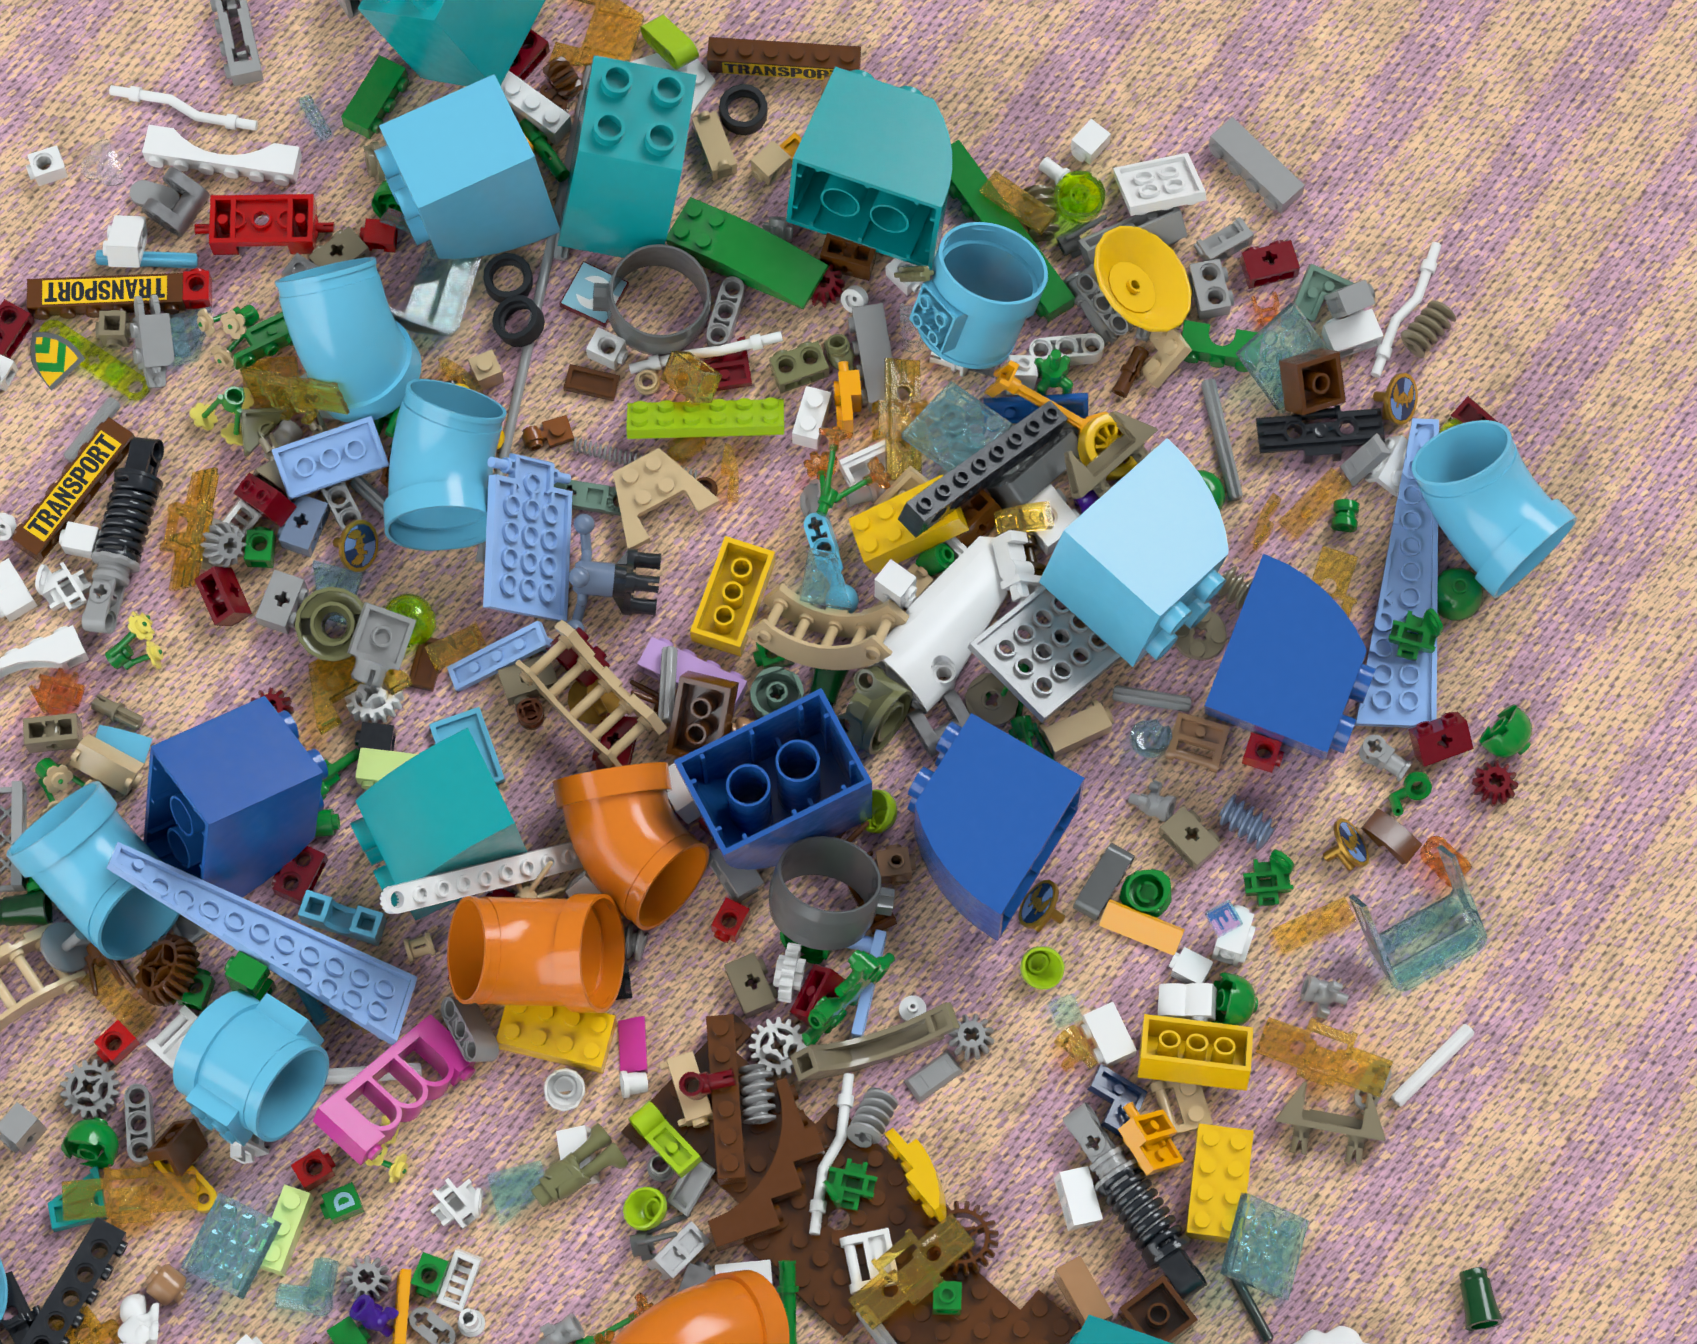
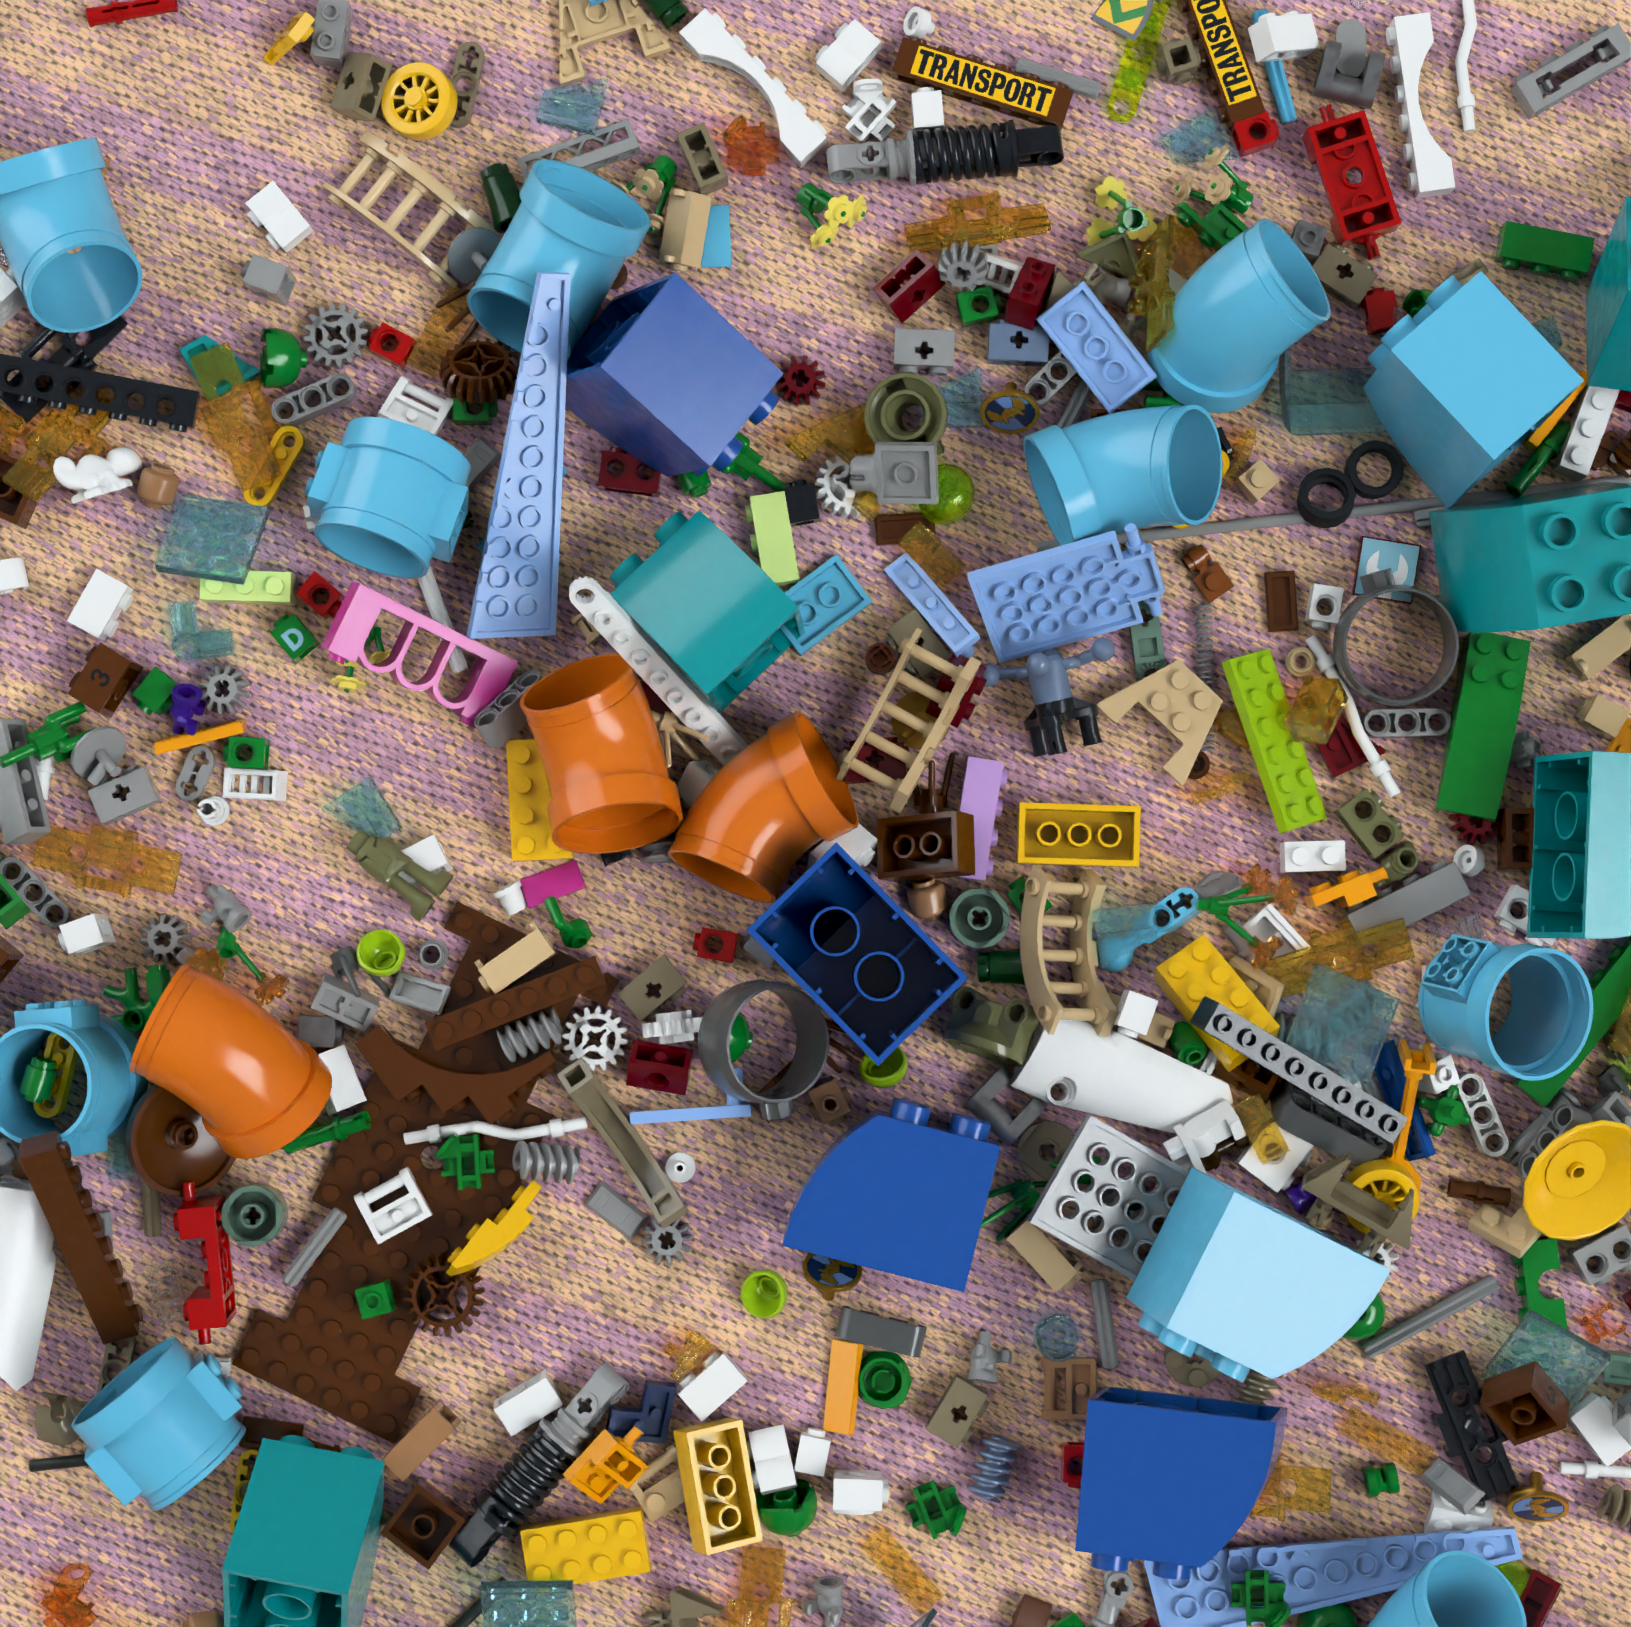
camera: 75 degrees right, 15 degrees up
(117, 712) = (749, 219): dark tan axle -> none
(152, 341) = (1174, 108): light grey hinge -> none
(179, 1145) = (297, 446): reddish brown panel -> none
(249, 976) = (484, 460): green arch -> none
(315, 117) = (1500, 192): clear light blue axle -> none
(331, 916) = (595, 532): medium azure arch -> none
(454, 1208) = (335, 757): white piece -> none
(561, 1081) = (471, 823): white hair -> none
(664, 1139) = (455, 952): lime plate -> none
(667, 683) = (952, 797): light grey axle -> none
(680, 1037) = (573, 933): none -> green plate
(707, 1082) = (519, 981): dark red pin -> none
(831, 1011) = (692, 1111): green plant -> none
(914, 273) = (1506, 924): olive axle -> none
(916, 1277) = (380, 1262): clear yellow piece -> none
(1065, 1010) = (728, 1329): clear light blue tile -> none
(1224, 918) = (865, 1480): clear light blue tile -> none
(1350, 848) = (999, 1588): shield -> none

